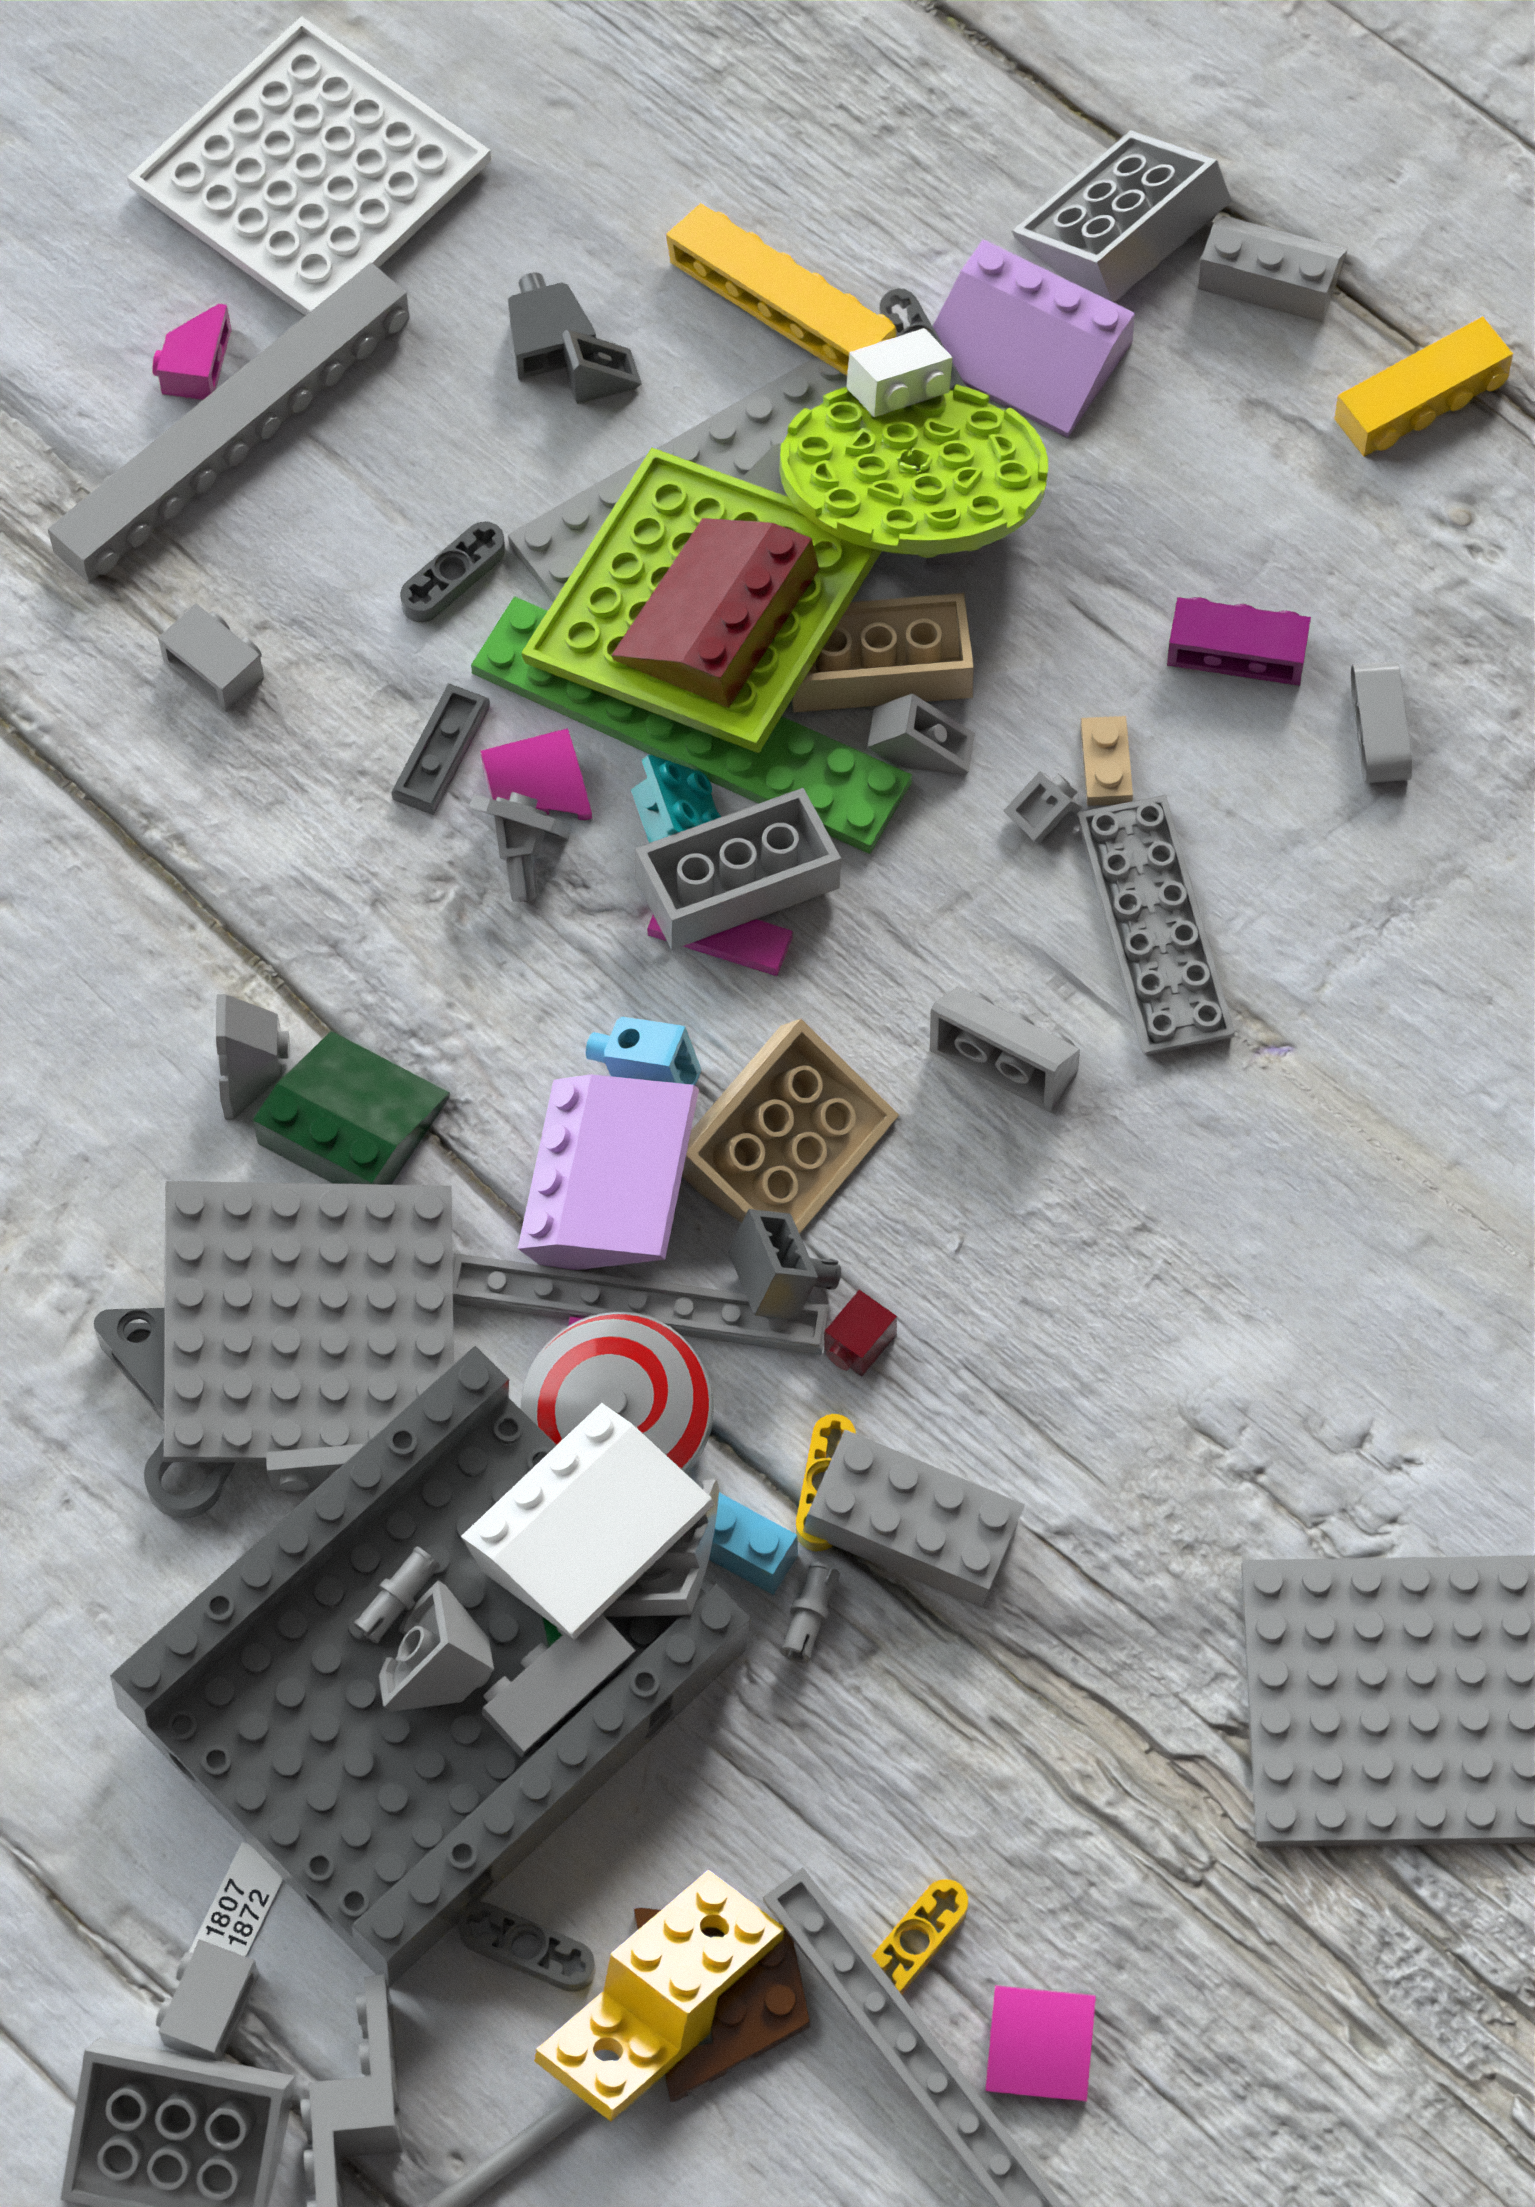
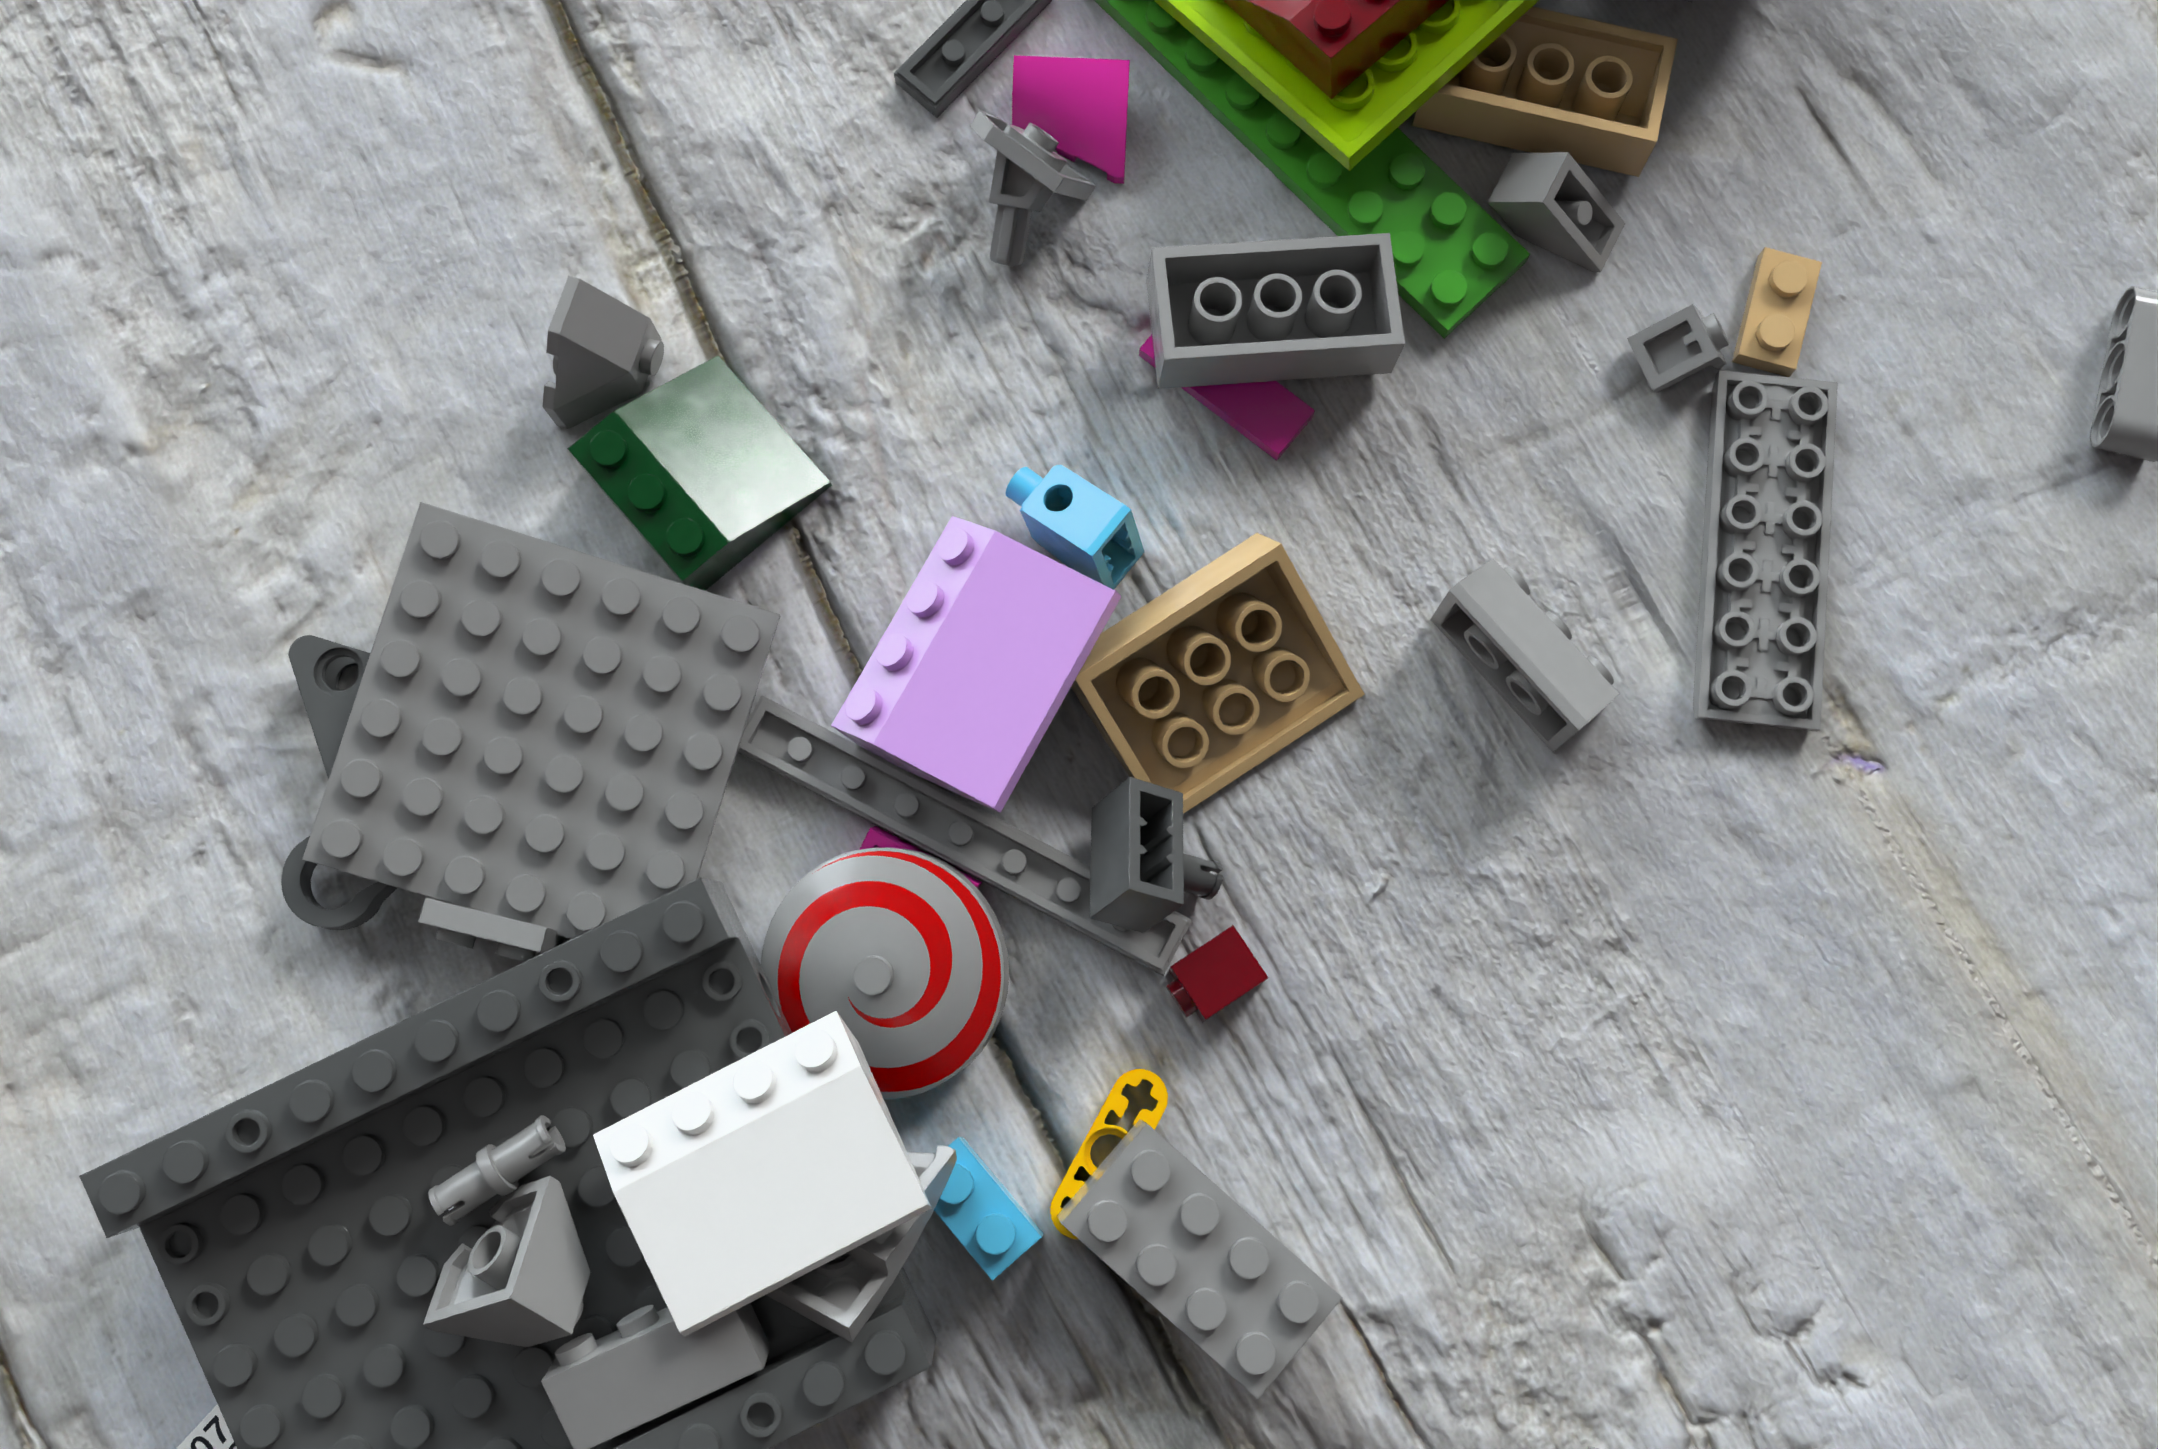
camera: 20 degrees right, 15 degrees up
(672, 798) = (1227, 195): teal bracket -> none
(809, 1612) = (1028, 1326): light grey pin -> none
(1238, 640) = (1998, 208): magenta brick -> none

